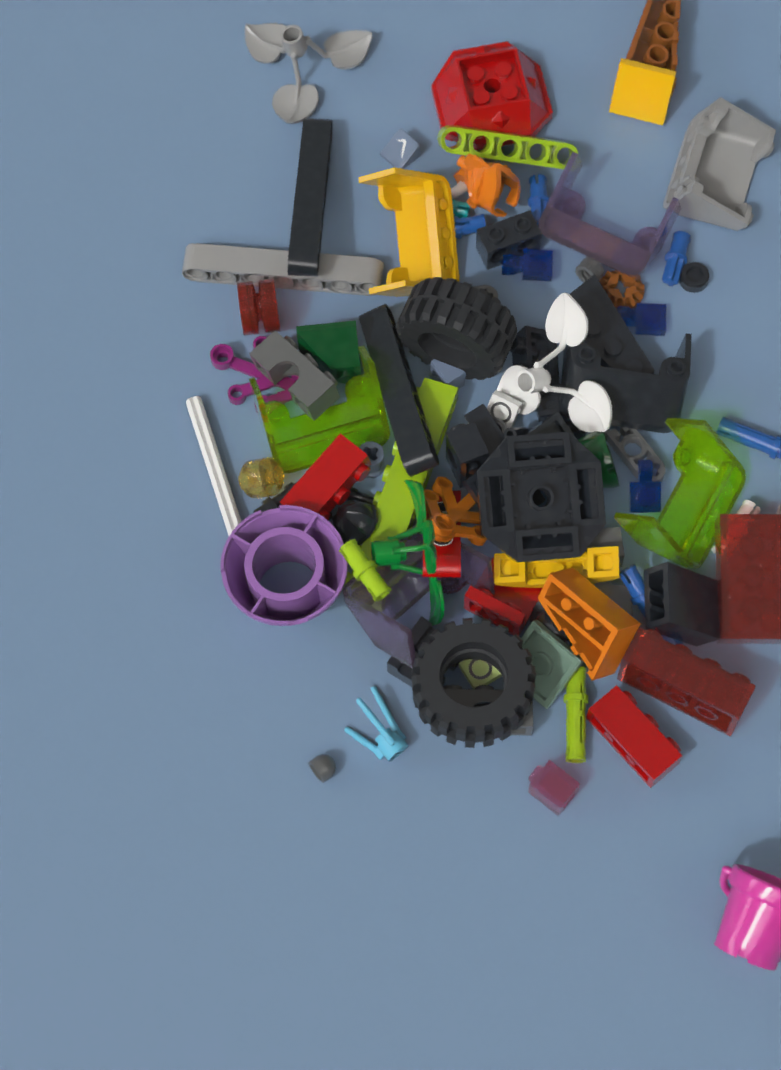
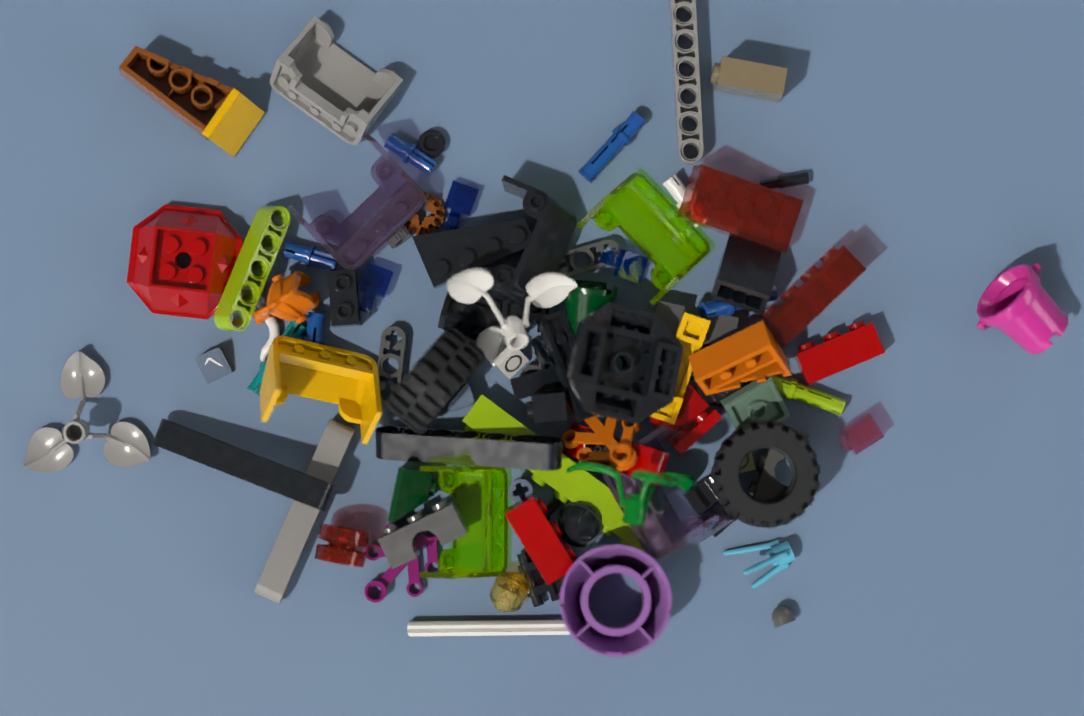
camera: 80 degrees left, 20 degrees up
(365, 570) = (646, 535): lime pin -> none

